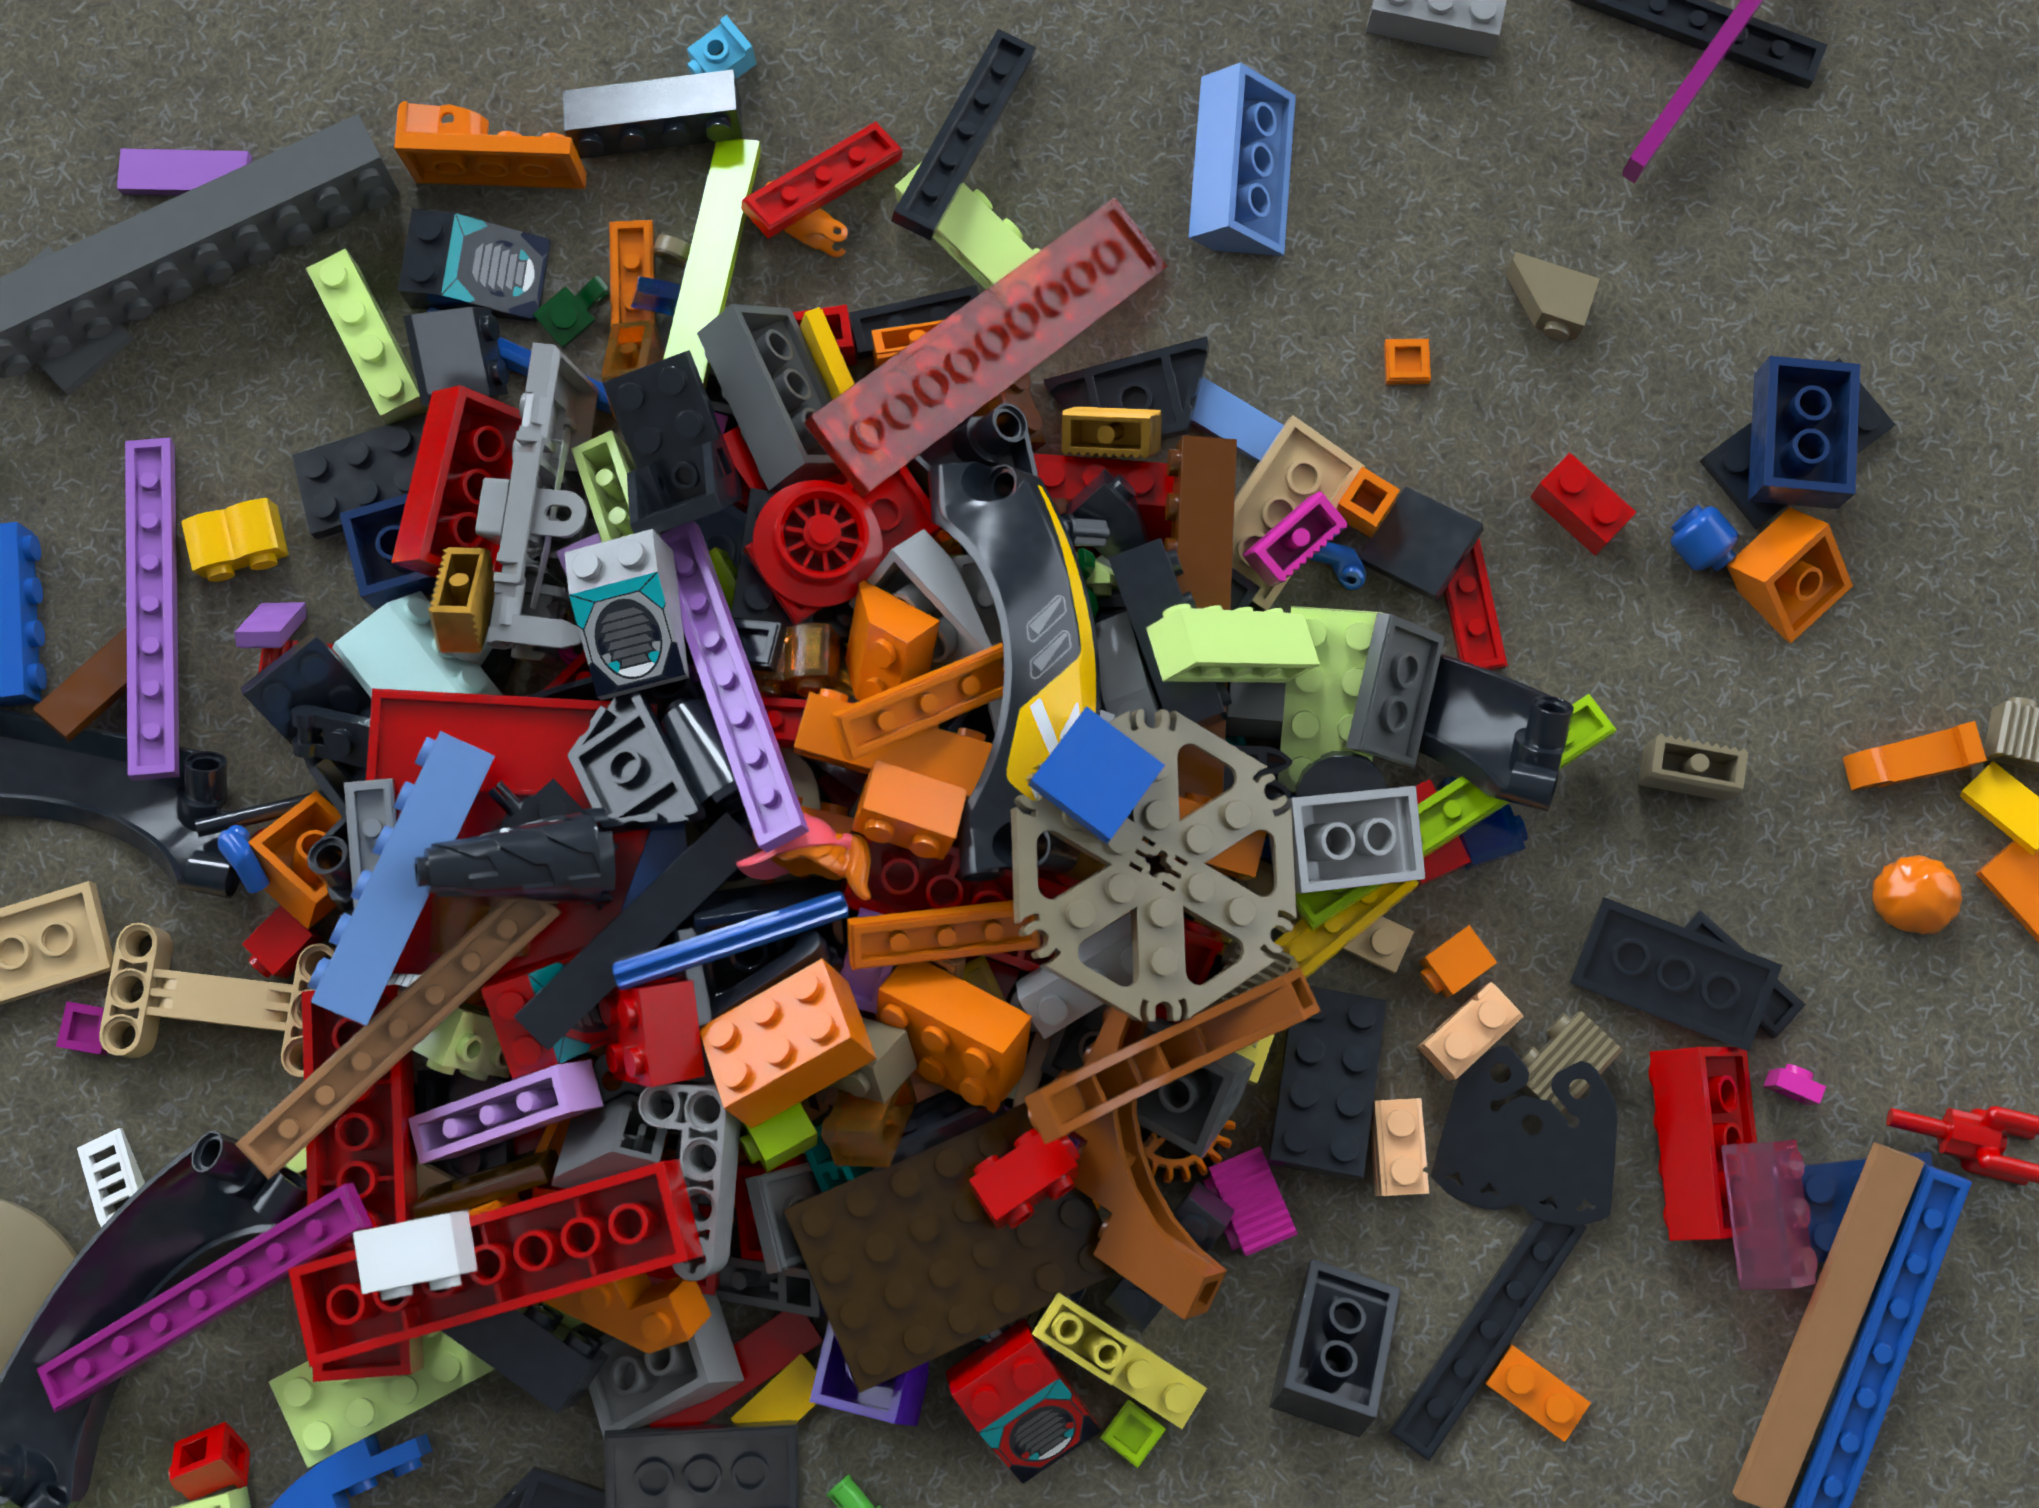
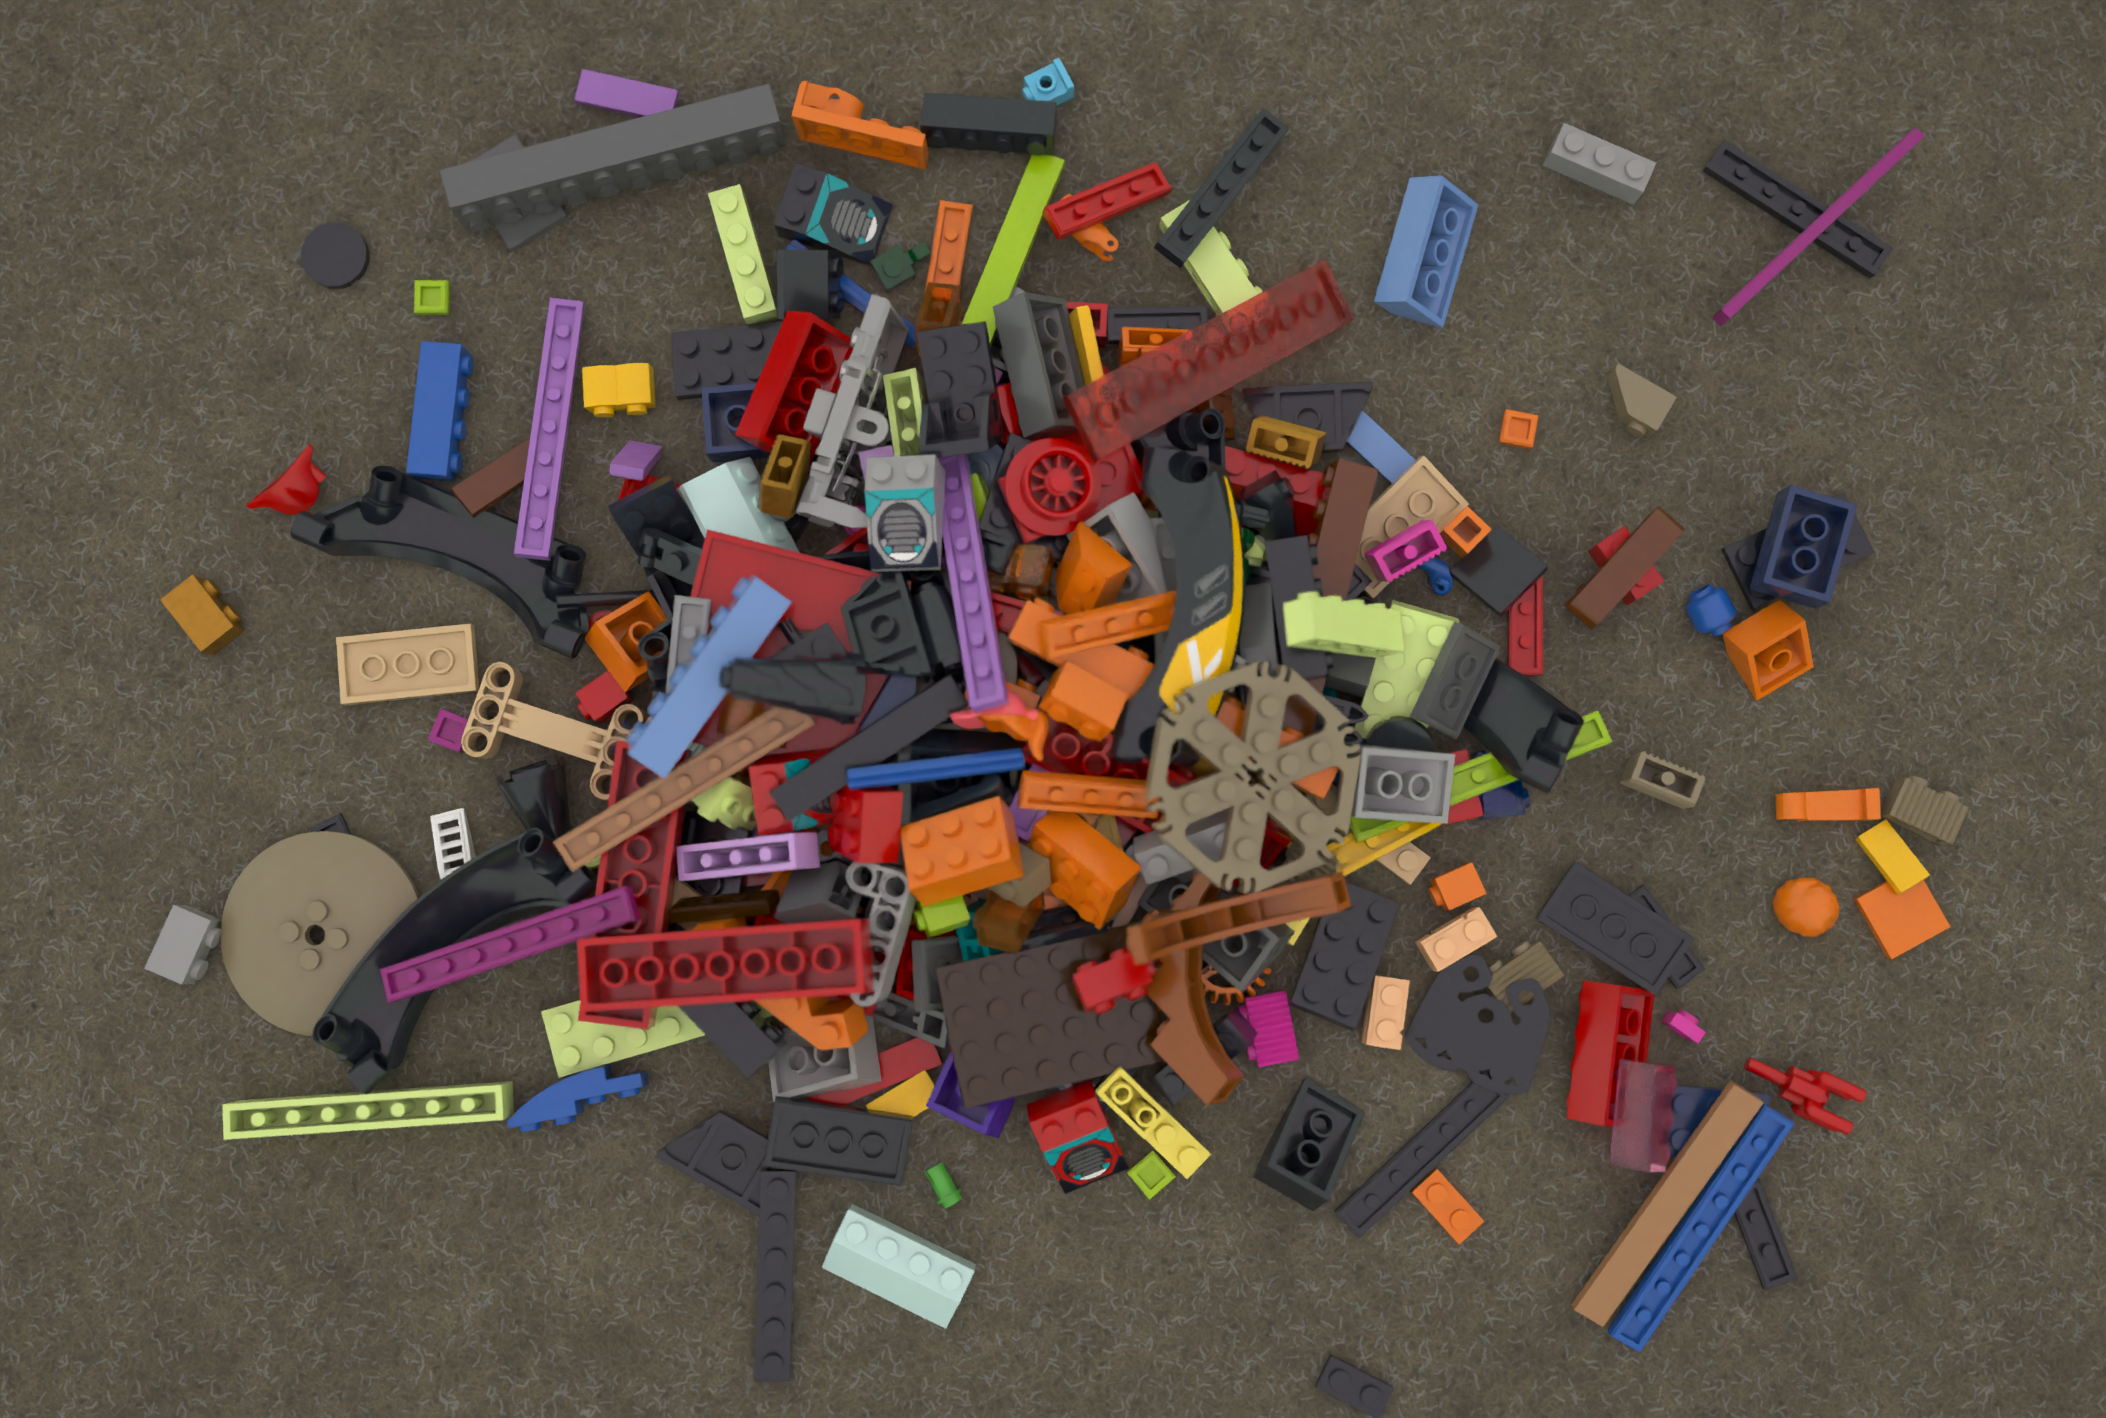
camera: 10 degrees right, 5 degrees up
(209, 1462) = (490, 1059): red brick -> none
(216, 1090) = (539, 796): none -> black cone
(237, 851) = (585, 624): blue arm -> none
(415, 1252) = (672, 948): white brick -> none
(655, 295) = (965, 266): clear blue tile -> none
(672, 250) = (984, 233): dark tan tile -> none
(1096, 775) = (1225, 705): blue tile -> none
(1581, 504) = (1624, 568): none -> reddish brown beam
(1967, 1349) = (1764, 1239): none -> black tile

